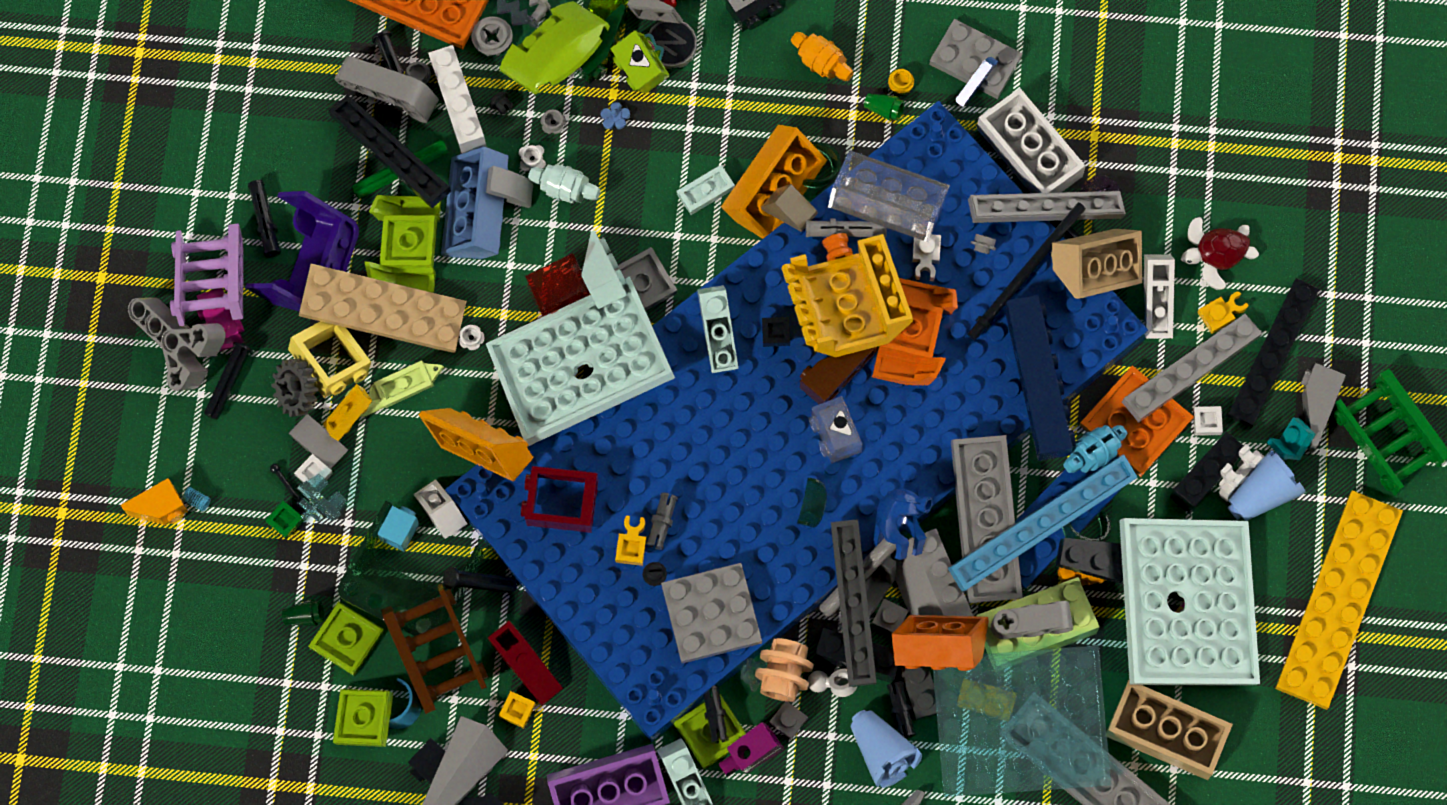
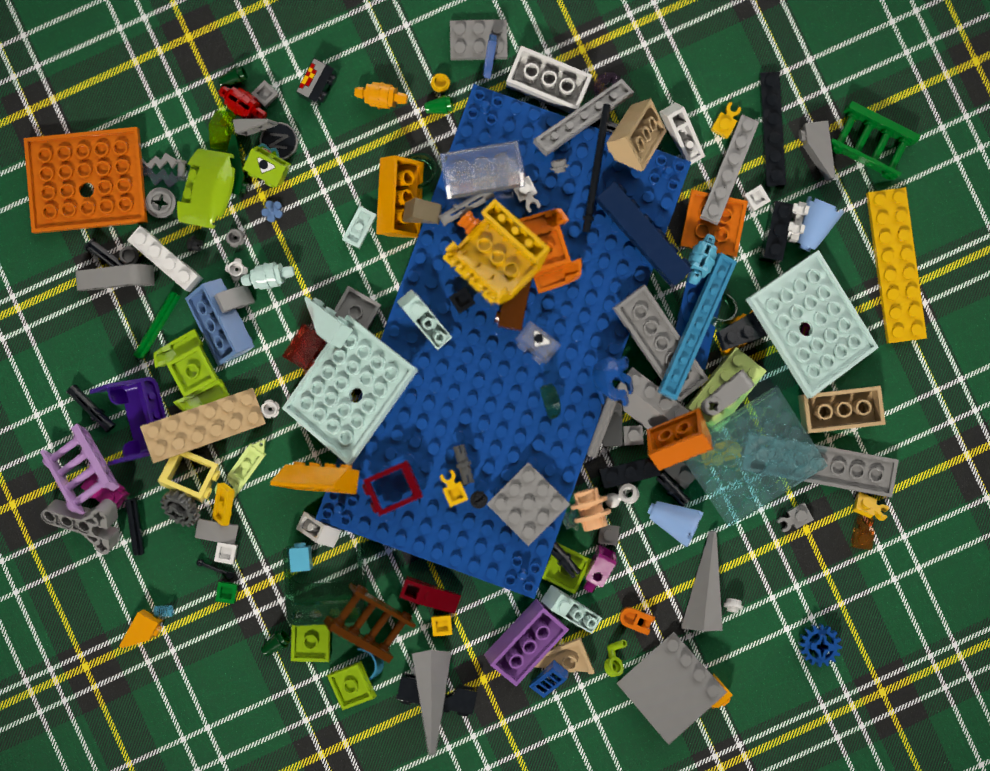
camera: 30 degrees left, 15 degrees up
(311, 490) = (250, 568): clear light blue hips -> none
(389, 151) = (143, 319): black plate -> none
(453, 578) = (357, 576): black axle -> none
(853, 603) = (611, 446): dark grey plate -> none
(1218, 249) = (703, 82): animal -> none
(1293, 440) = (817, 181): teal bracket -> none

